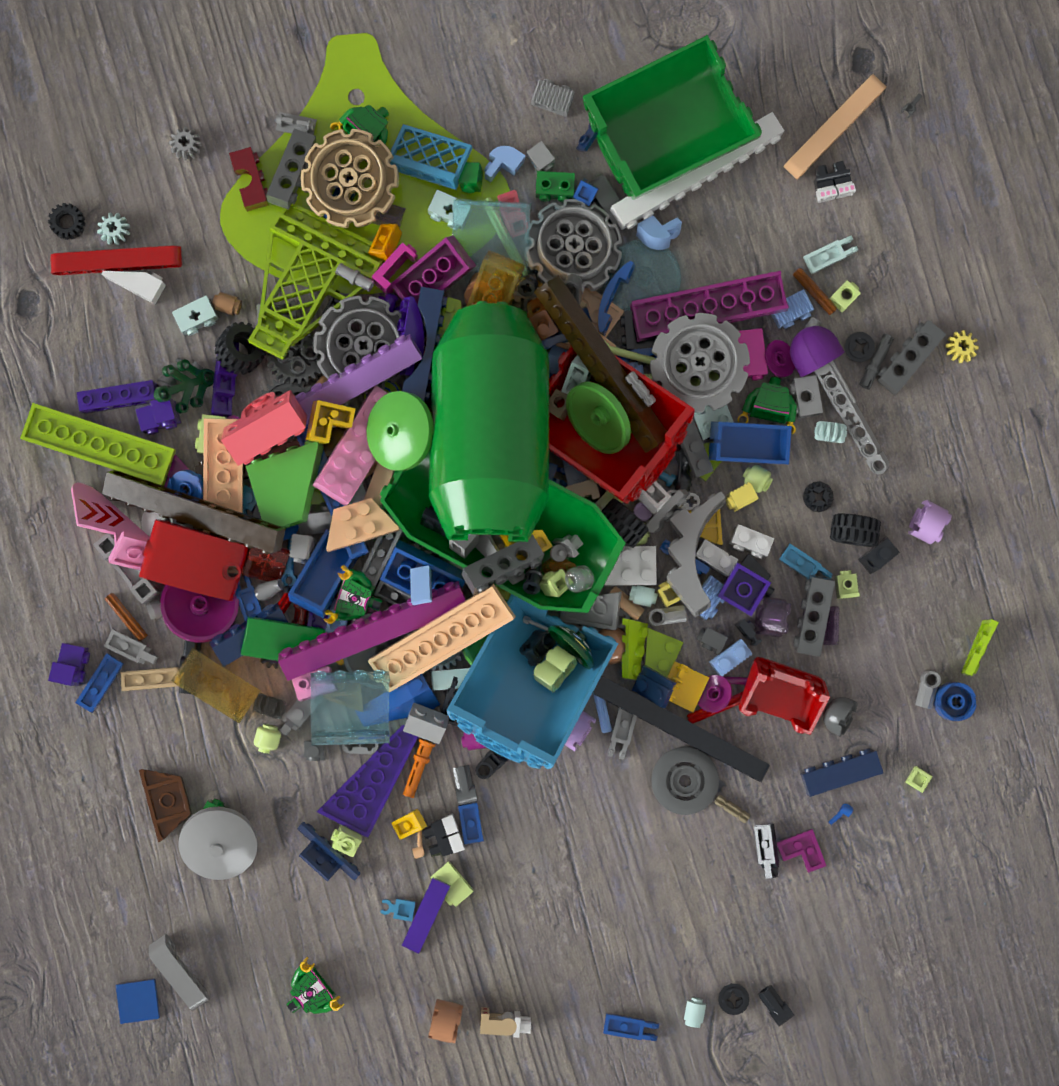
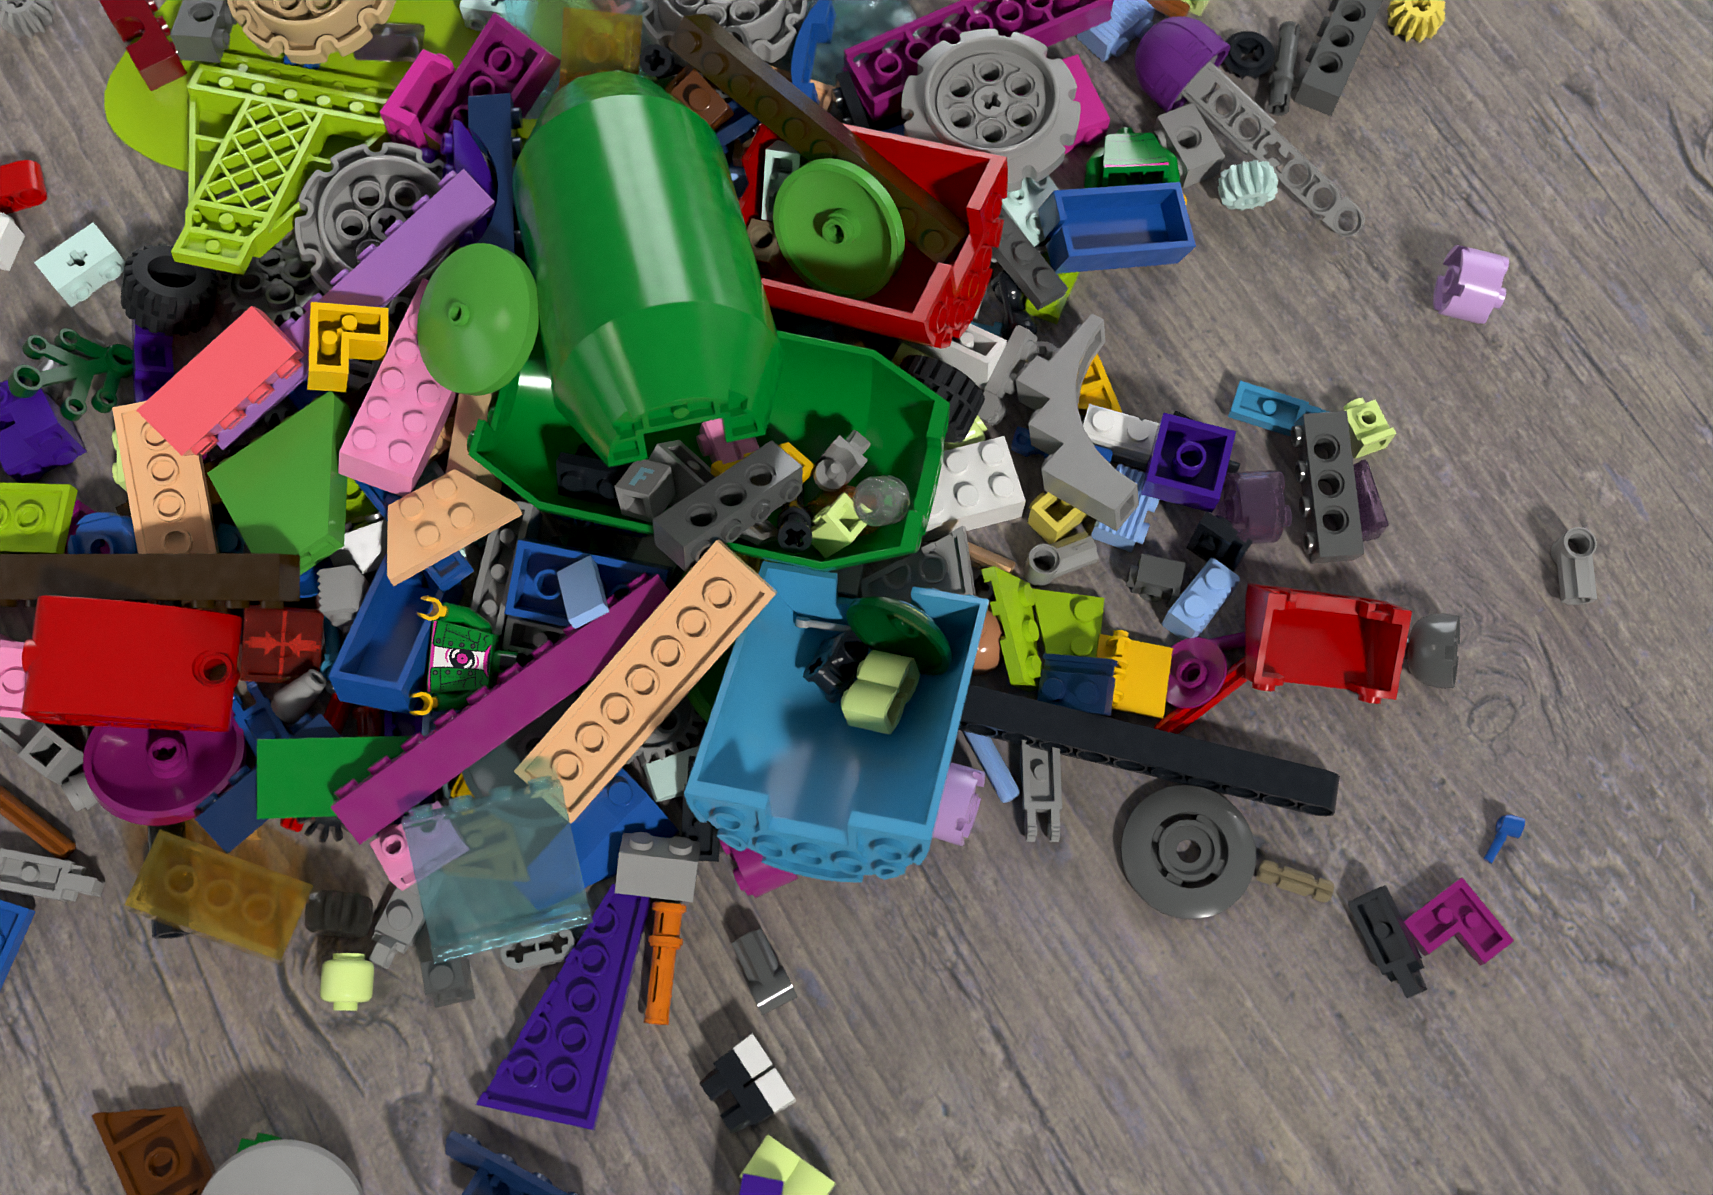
camera: 15 degrees left, 15 degrees down
(148, 679) = (86, 931): tan tile -> none
(227, 303) = (135, 232): medium nougat brick -> none
(346, 840) = (548, 1146): yellowish green brick -> none
(355, 277) = (352, 126): light grey pin -> none
(385, 241) = (393, 71): light orange slope -> none
(409, 824) = (671, 1078): yellow slope -> none
(419, 851) = (703, 1133): light nougat hand -> none
(470, 823) = (794, 1045): blue plate -> none
(492, 762) = (807, 907): black piece -> none
(640, 389) = (900, 160): light grey axle -> none
(643, 595) = (1006, 534): light aqua brick -> none
(741, 497) = (1131, 320): light yellow brick -> none
(751, 541) = (1170, 390): white brick -> none
(758, 477) = (1147, 291): yellowish green head -> none
(779, 359) = (1122, 97): magenta dish -> none
(809, 497) = (1269, 311): black gear -> none
(841, 773) = (1477, 756): dark blue brick -> none
(855, 530) = (1349, 323): black tyre -> none
(879, 555) = (1409, 354): black torso -> none
(918, 779) = (1620, 734): yellowish green tile -> none
(965, 699) = (1635, 572): blue brick -> none
(979, 646) = (1637, 465): lime wing -> none

